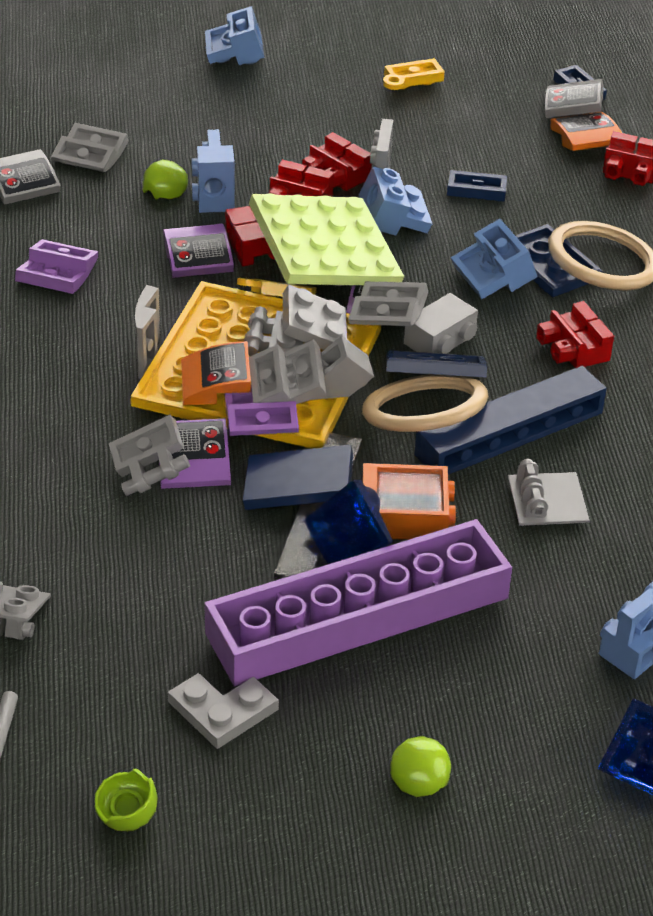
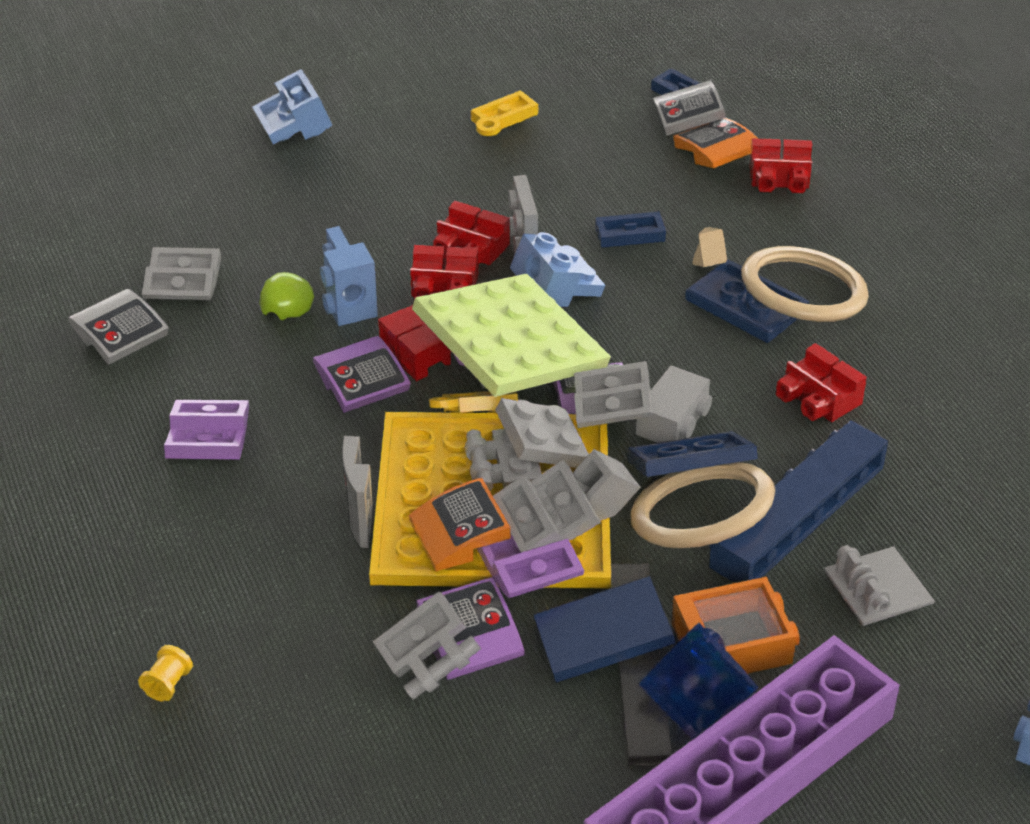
camera: 15 degrees left, 0 degrees up
(495, 261) = (697, 315): medium blue brick -> none
(533, 210) = (710, 248): none -> tan slope

